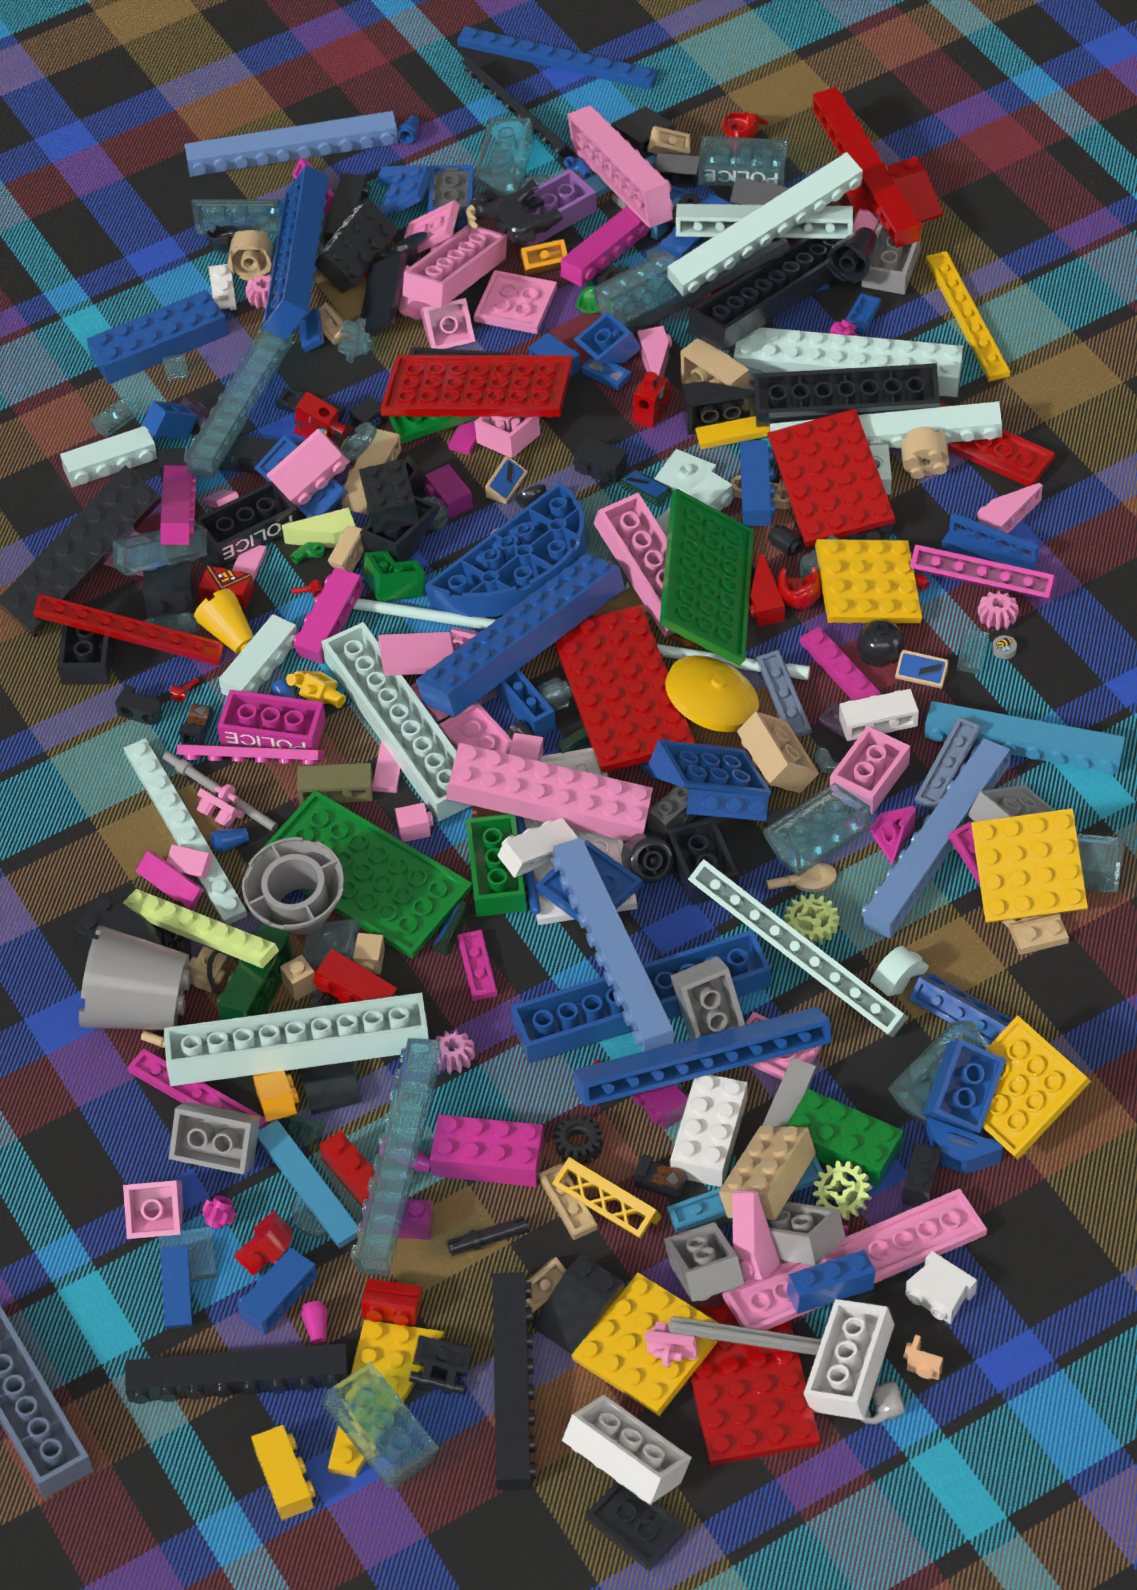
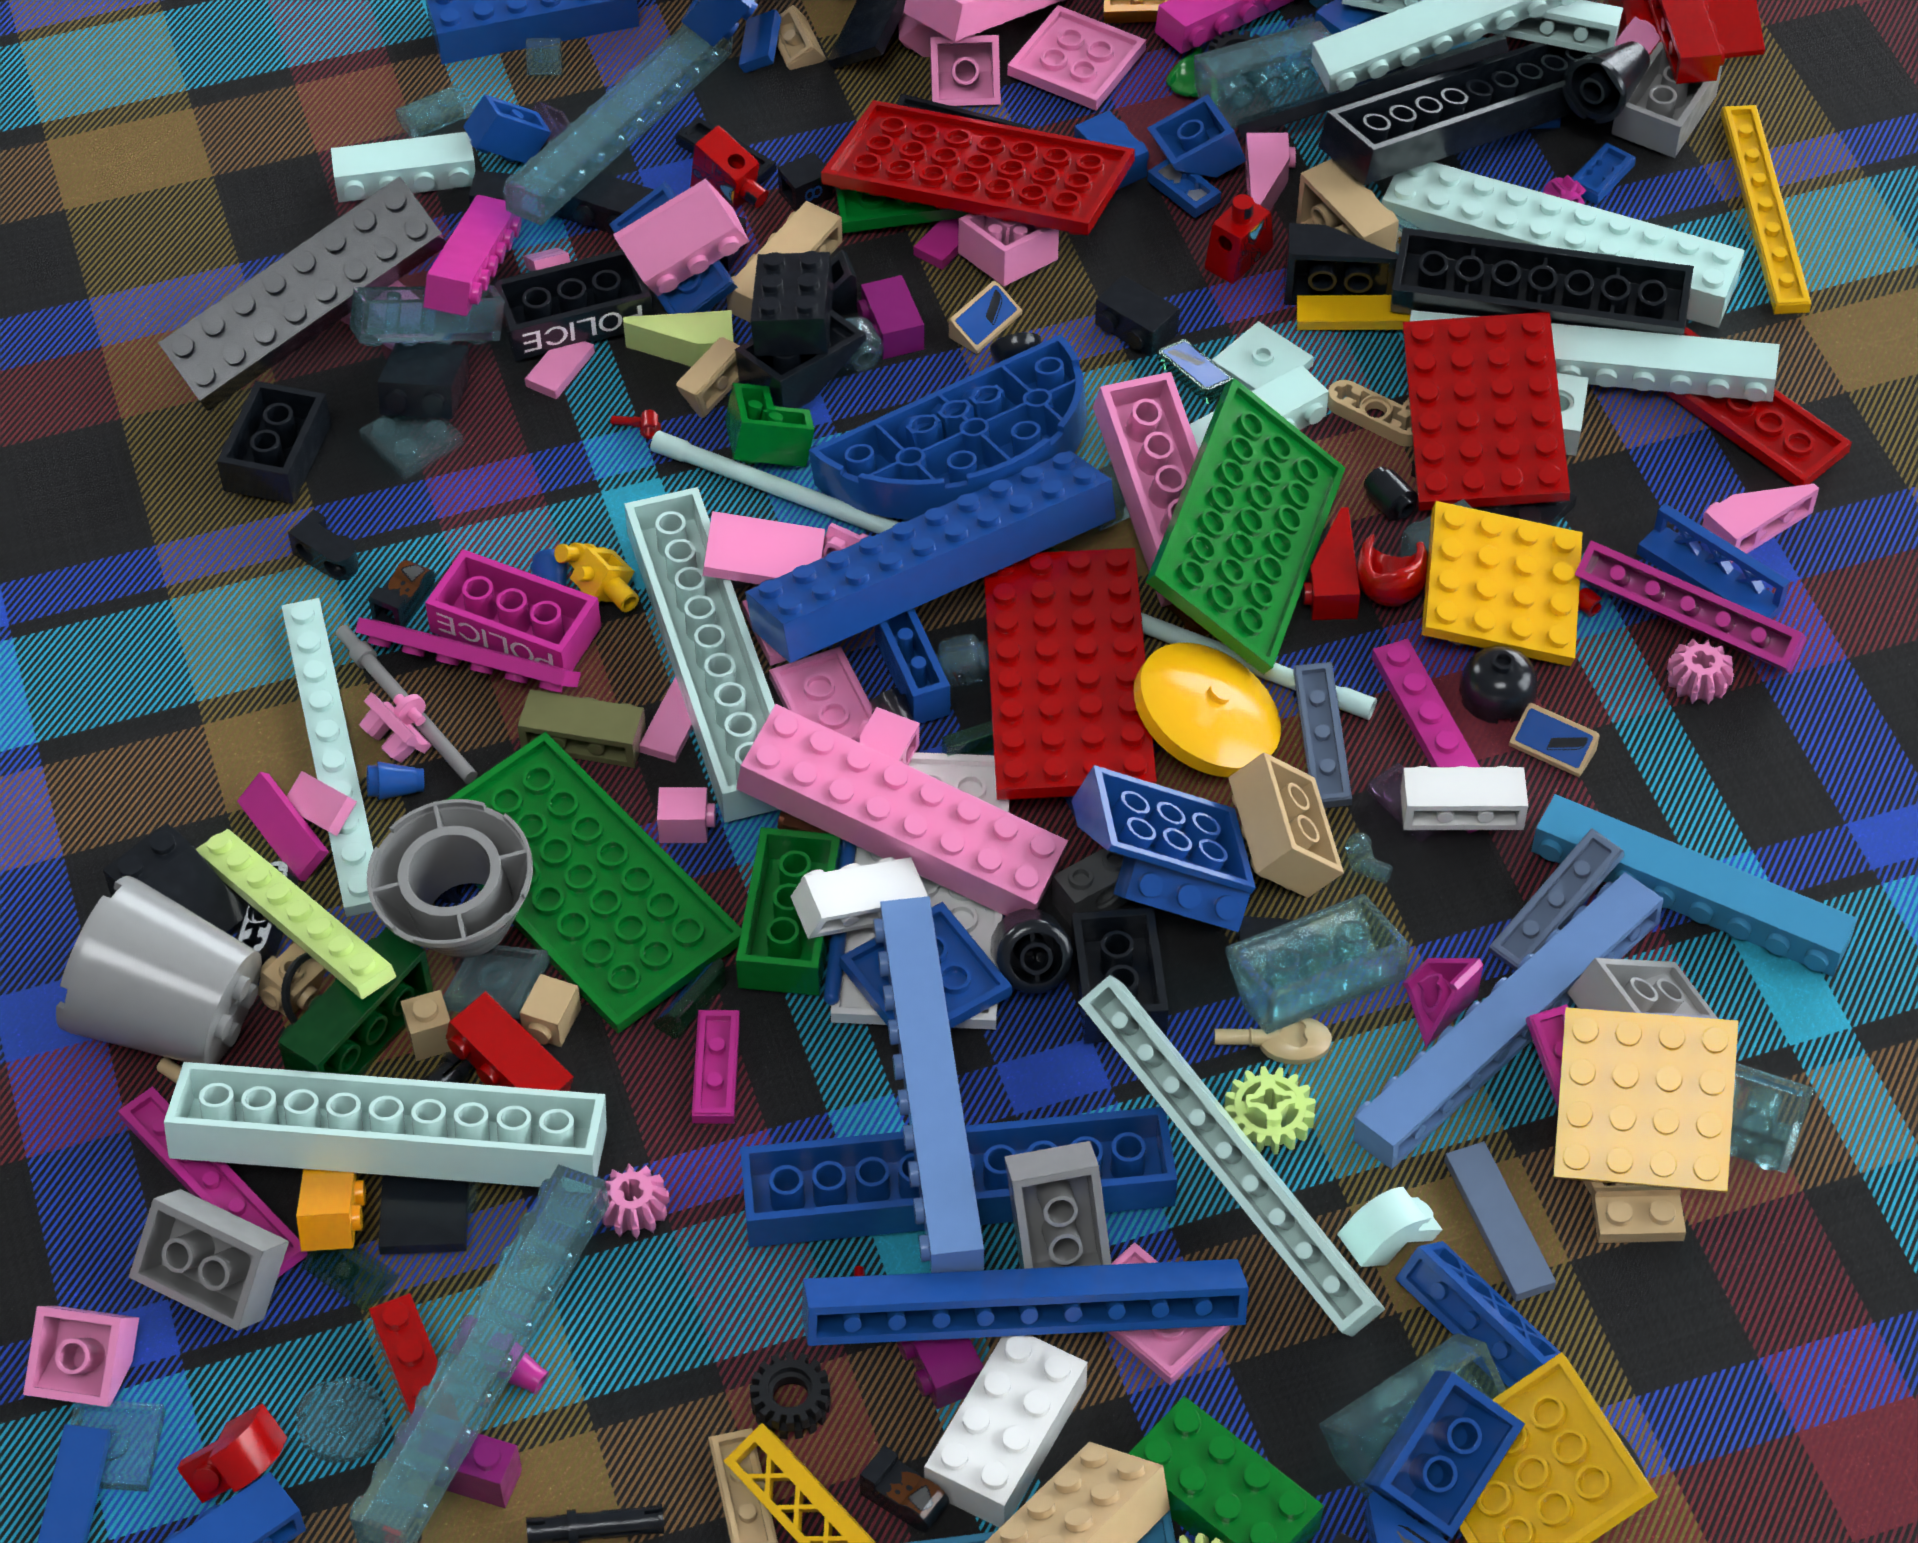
camera: 10 degrees right, 0 degrees up
(128, 629) = (341, 427): red tile -> none
(179, 693) = (394, 541): red hand -> none
(219, 1212) = (180, 1383): dark pink gear -> none
(220, 578) = (513, 394): red brick -> none
(225, 620) = (495, 444): yellow cone -> none
(259, 657) = (530, 509): light aqua brick -> none
(308, 550) = (655, 363): green arm -> none
(308, 1183) = (334, 1367): dark azure tile -> none
(328, 614) = (653, 463): dark pink brick -> none
(356, 445) = (777, 217): clear light blue tile -> none
(358, 341) = (822, 71): clear light blue hips -> none
(487, 1150) = (637, 1379): dark pink brick -> none
(756, 483) = (1365, 397): blue brick -> none
(790, 1092) = (1157, 1392): light grey tile -> none
(872, 767) = (1431, 881): bright pink brick -> none
(925, 452) = (1644, 401): tan brick -> none
(960, 954) = (1500, 1221): none -> sand blue tile
(972, 651) = (1644, 728): clear light blue tile -> none
(1004, 647) = (1696, 732): light grey tile -> none

